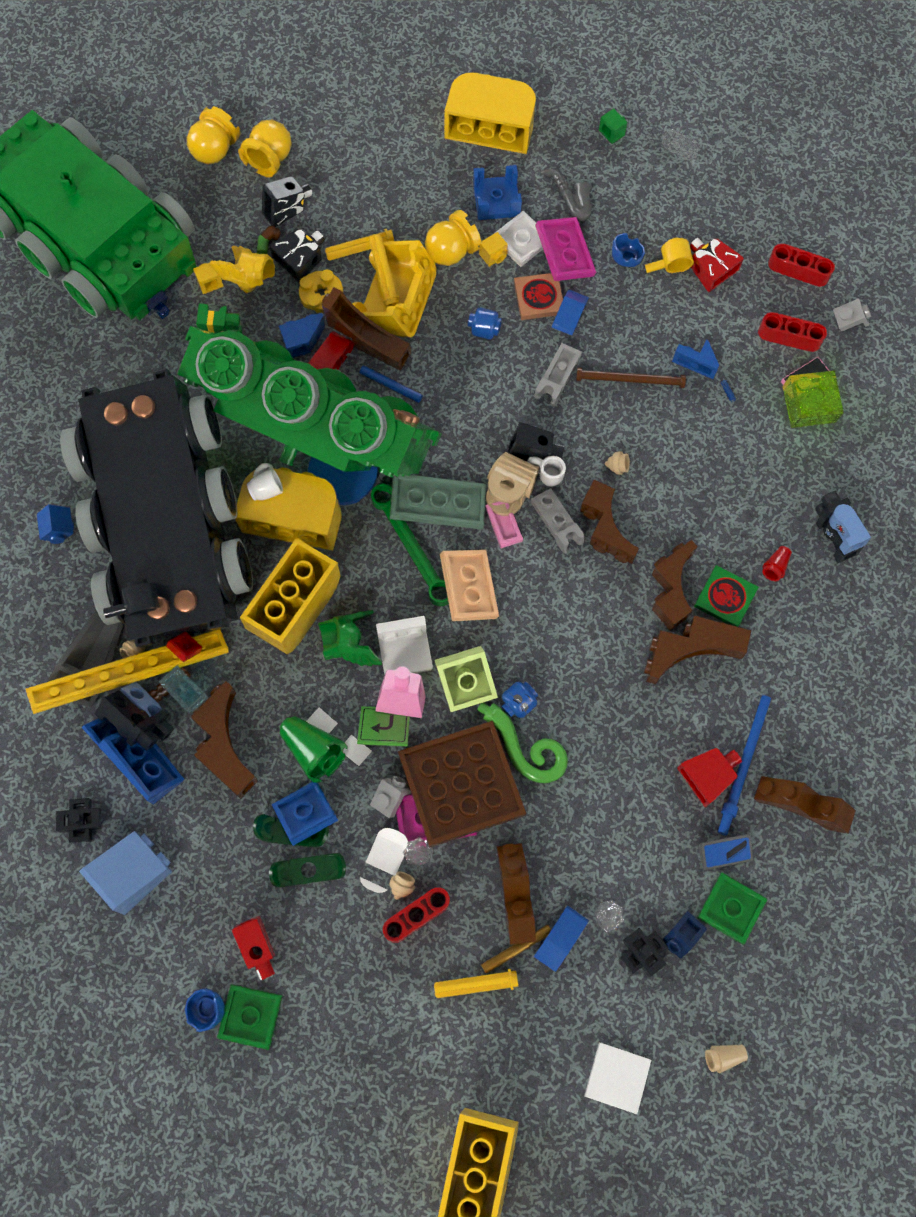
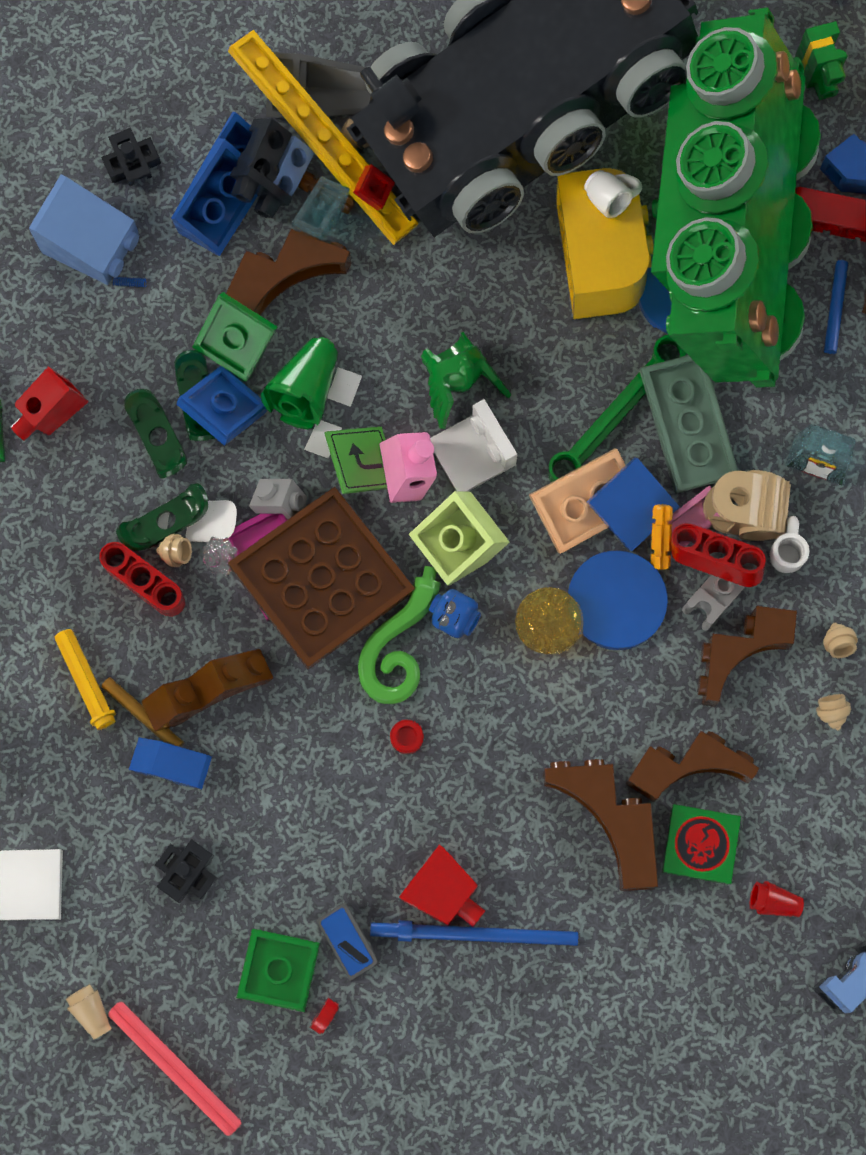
camera: 75 degrees right, 5 degrees up
(181, 845) = (130, 280): none -> blue leg
(257, 785) = (234, 336): none -> green tile
(292, 597) = (478, 285): yellow brick -> none
(372, 865) = (144, 531): none -> dark green piece
(483, 556) = (628, 503): none -> blue tile
(494, 423) = (822, 453): none -> clear light blue torso
(512, 545) = (661, 536): none -> light orange axle
(533, 441) = (818, 504): black torso -> none
(542, 502) = (726, 568): none -> red beam
(543, 591) = (619, 599): none -> blue tile
(546, 638) = (549, 621): none -> clear yellow tile
(593, 763) = (406, 736): none -> red tile
(609, 916) = (216, 813): clear piece -> none
(663, 483) = (833, 710): none -> tan plate
(684, 935) = (223, 916): dark blue bracket -> none
(775, 885) = (324, 1016): none -> red tile
(781, 1006) = (174, 1068): none -> coral axle
(800, 799) = (444, 1028): reddish brown arch -> none

